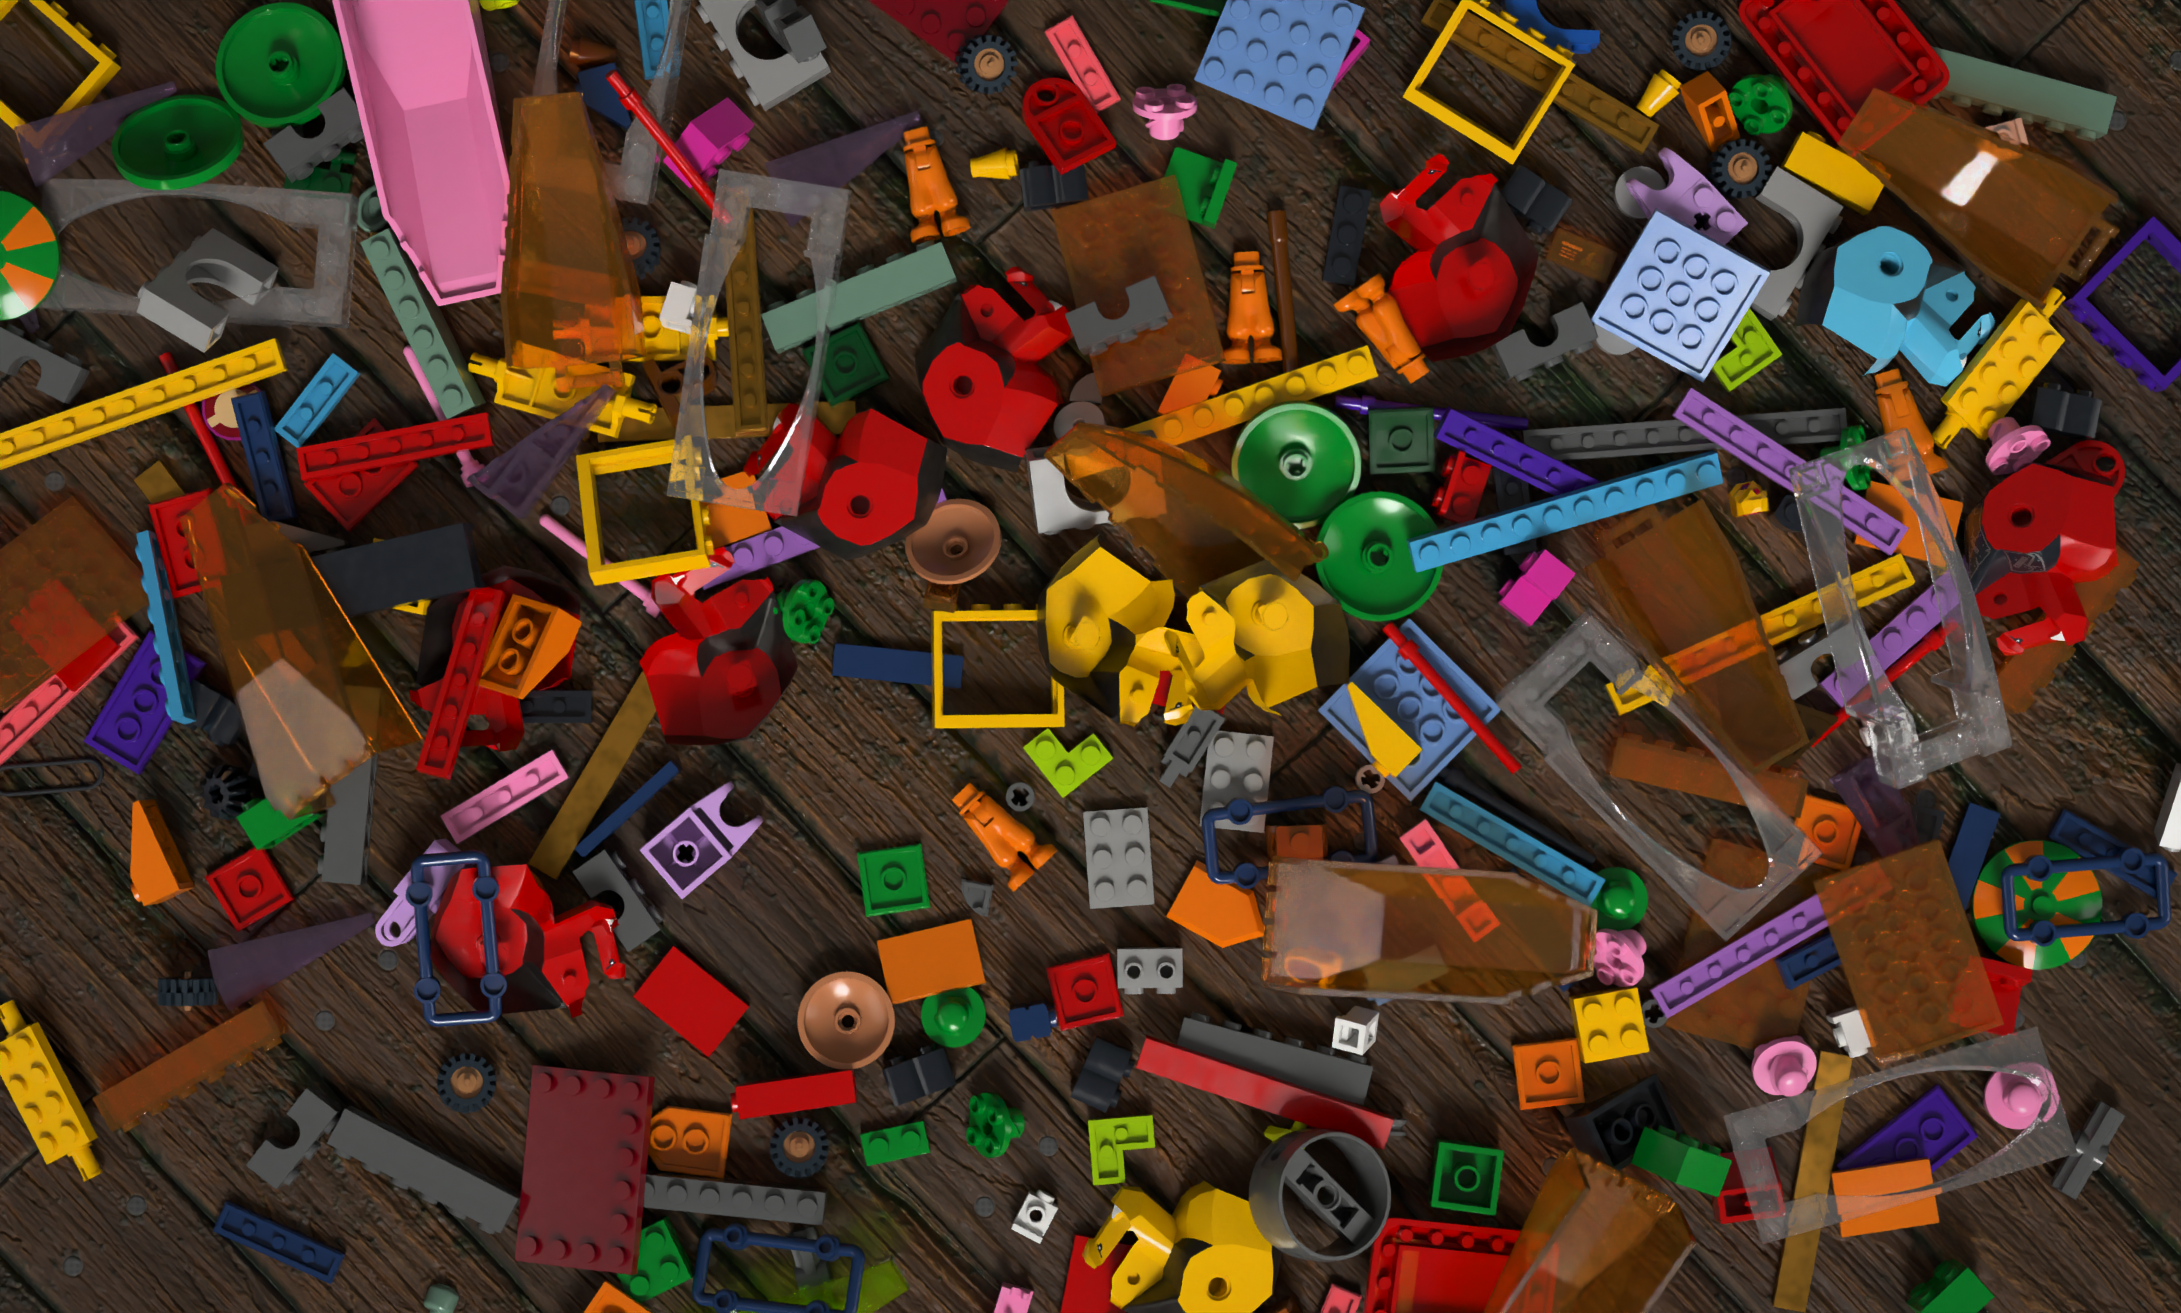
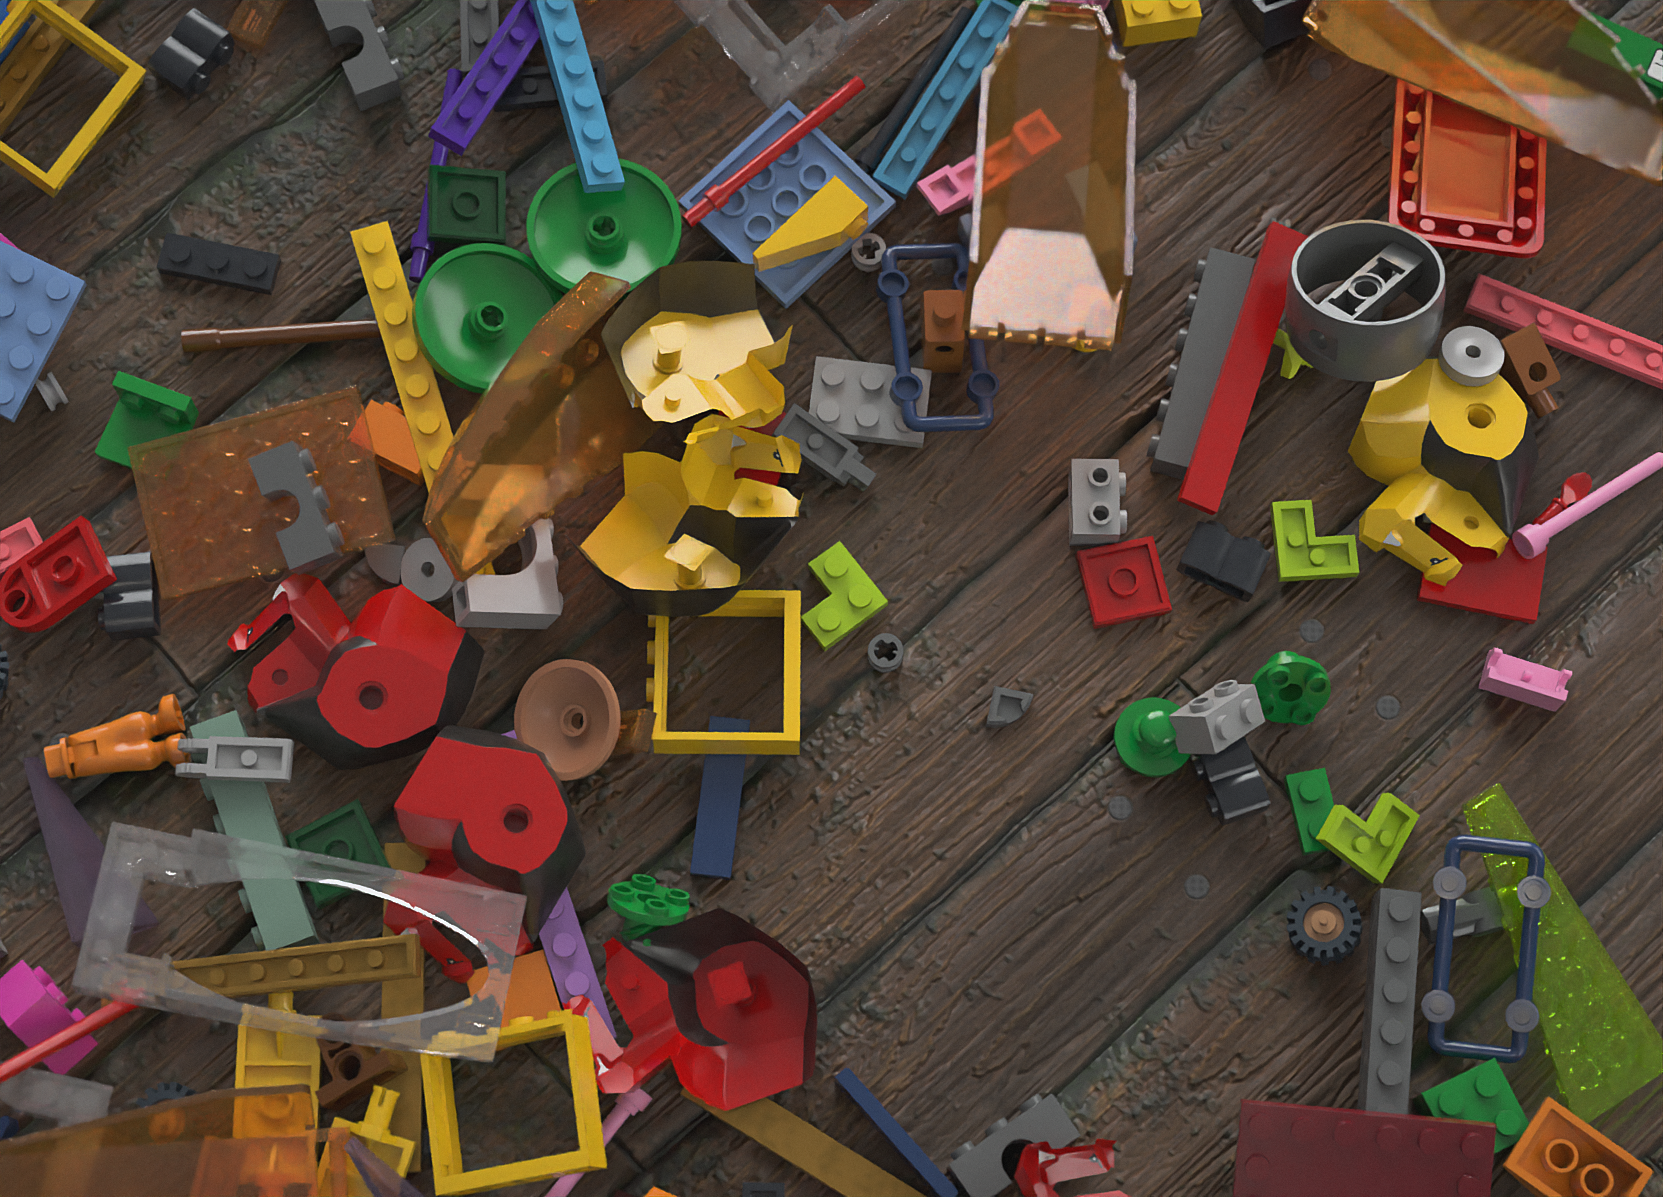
camera: 90 degrees left, 15 degrees down
(679, 307) = (252, 1051): white brick -> none
(690, 1141) = (1319, 1061): orange tile -> none
(691, 1001) = (1141, 1062): red tile -> none
(708, 834) = (931, 1032): lavender brick -> none
(794, 1093) = (1257, 923): red brick -> none
(823, 1015) = (1170, 833): nougat dish -> none
(864, 1187) = (1372, 844): none -> lime plate
(893, 880) = (987, 808): green tile -> none
(912, 284) = (239, 759): none -> light grey hinge
(931, 961) = (1089, 761): orange tile -> none
(962, 1064) = (1217, 718): none -> light grey brick
(998, 164) = (99, 665): yellow cone -> none
(1002, 835) = (934, 671): orange piece -> none
(1032, 1020) = (1161, 636): dark blue brick -> none
(1035, 1229) = (1399, 656): white brick -> none
(1118, 857) = (960, 539): light grey plate -> none
(1164, 109) = (47, 460): bright pink plate -> none
(1216, 911) = (1024, 428): orange tile -> none
(1227, 108) = (51, 391): none -> light grey bush
(1249, 313) = (302, 370): orange piece -> none
(1285, 1289) = (1475, 342): none -> light grey piece
(1355, 1030) = (1167, 267): white brick -> none
(1385, 326) = (329, 219): orange piece -> none
(1462, 488) = (525, 143): red bracket -> none
(1465, 1176) = (1335, 151): green brick -> none
(1468, 265) = (275, 116): red piece -> none
(1538, 584) = (642, 59): dark pink brick -> none
(1548, 1073) = (1212, 68): orange tile -> none

